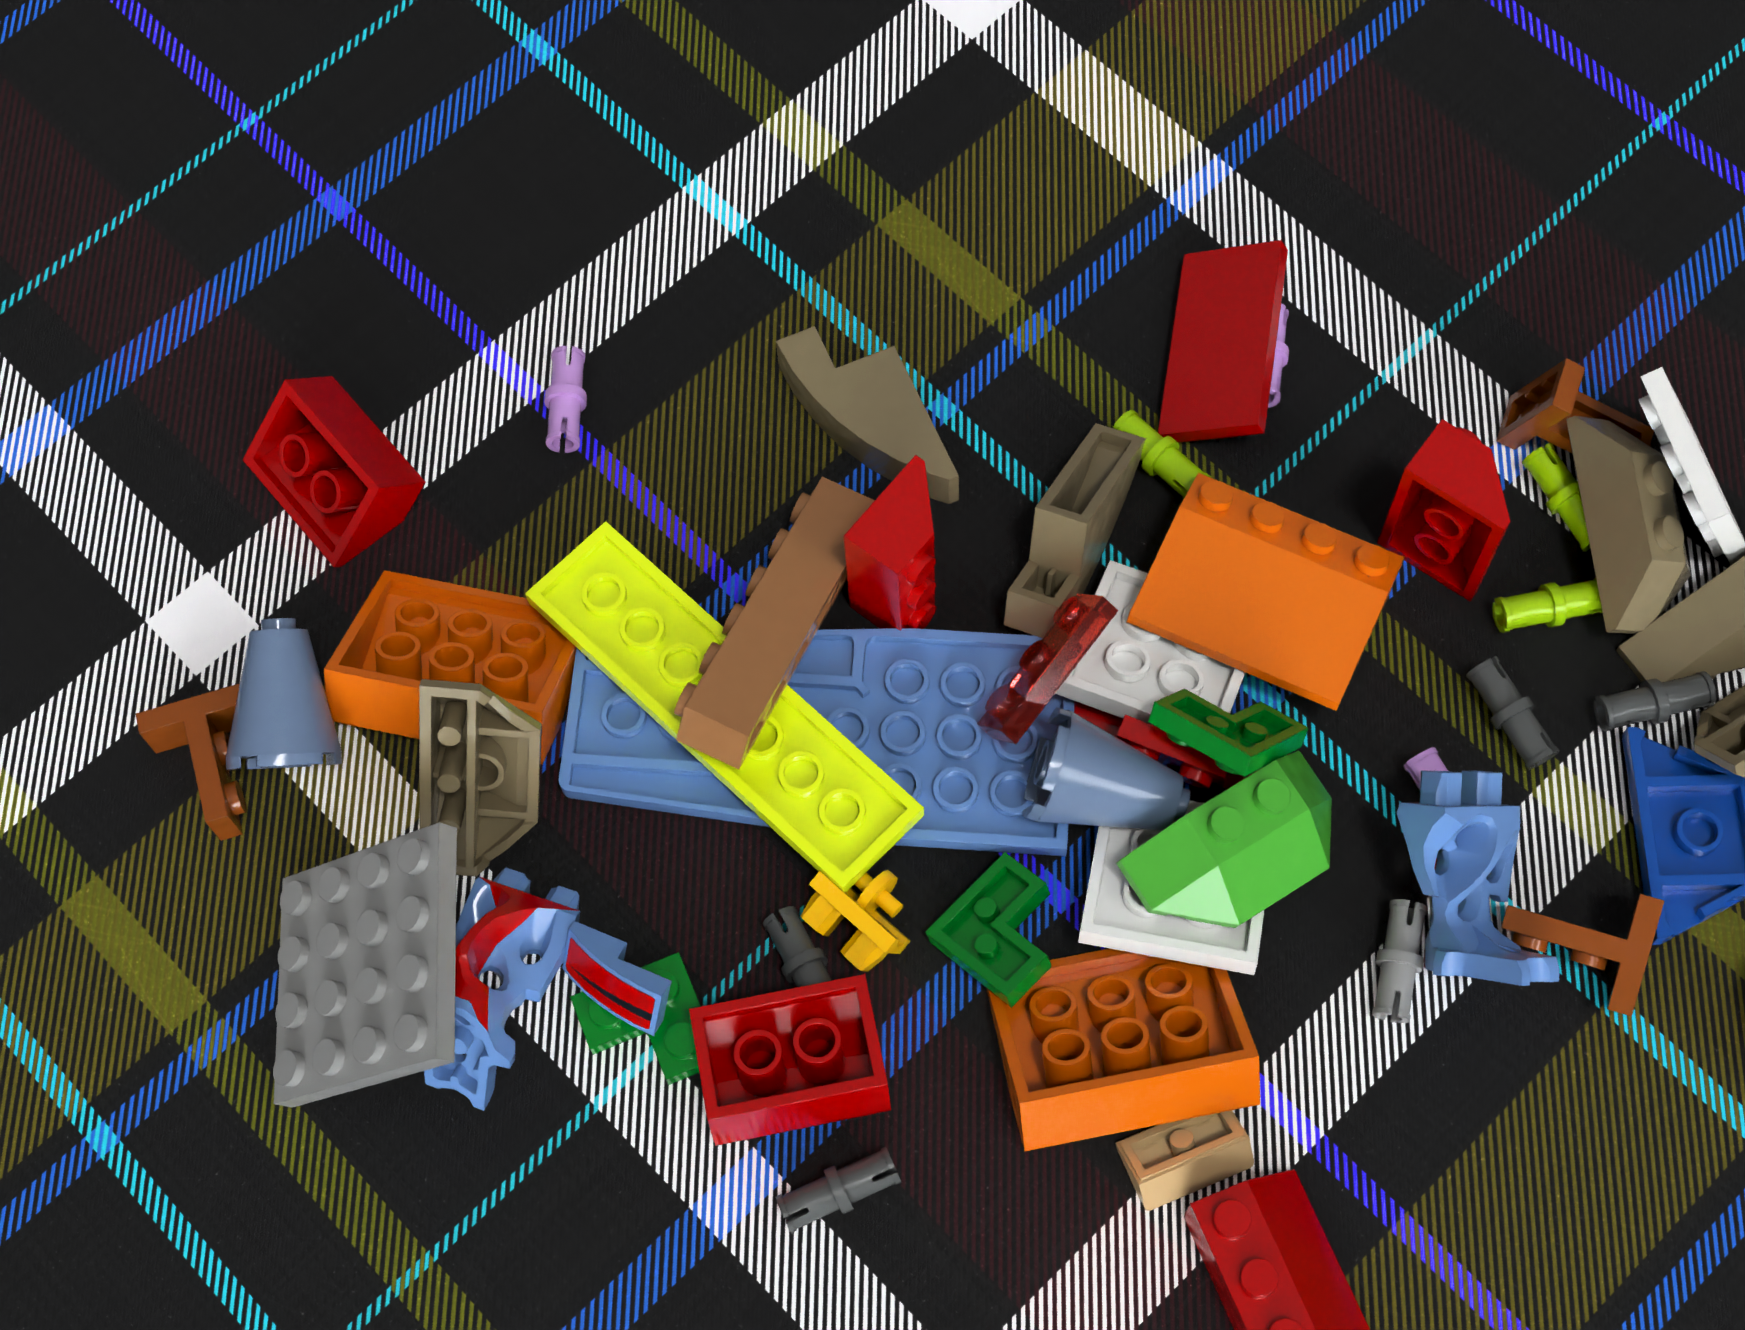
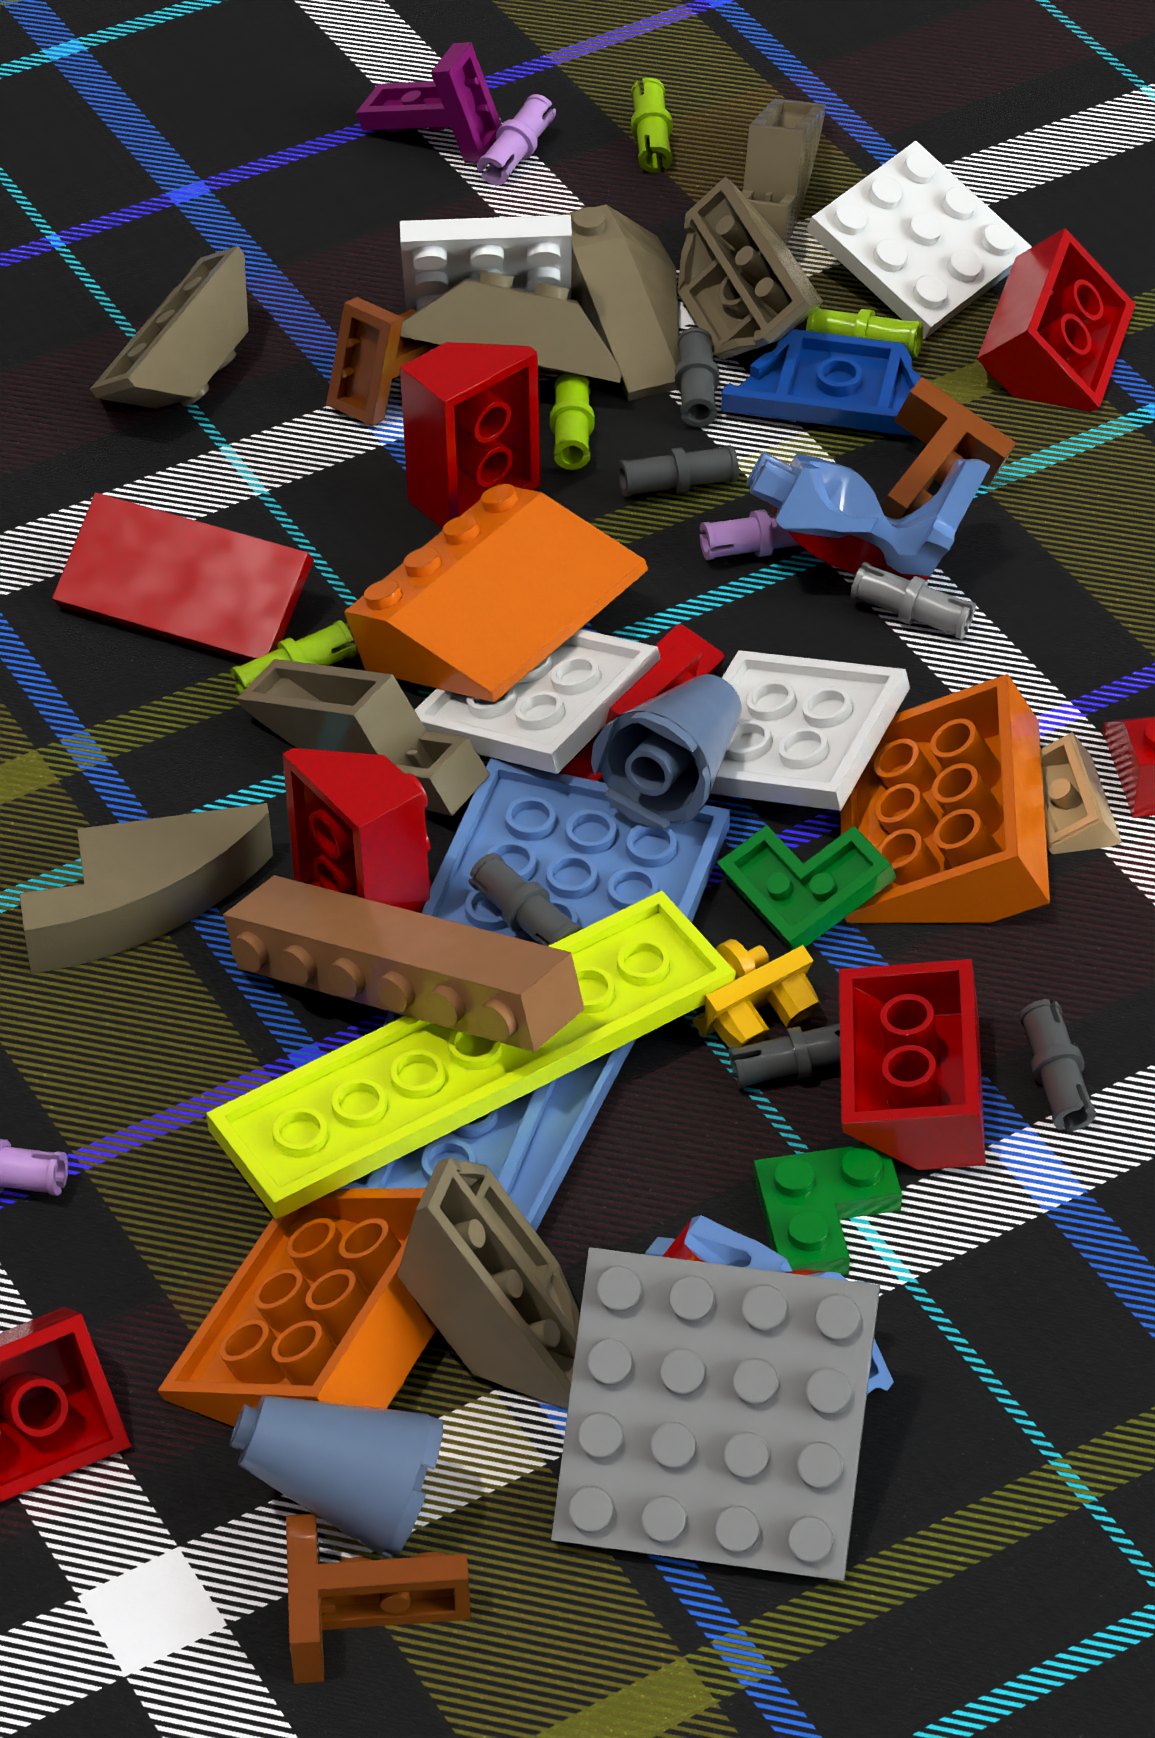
camera: 80 degrees left, 20 degrees down
(625, 990) = (785, 1196): slope -> none
(891, 702) = (522, 903): none -> dark grey pin
(1046, 667) = (534, 761): clear red plate -> none
(1236, 741) = (659, 620): green plate -> none
(1238, 848) = (777, 657): bright green wedge -> none
(1524, 253) = (184, 338): none -> dark tan wedge

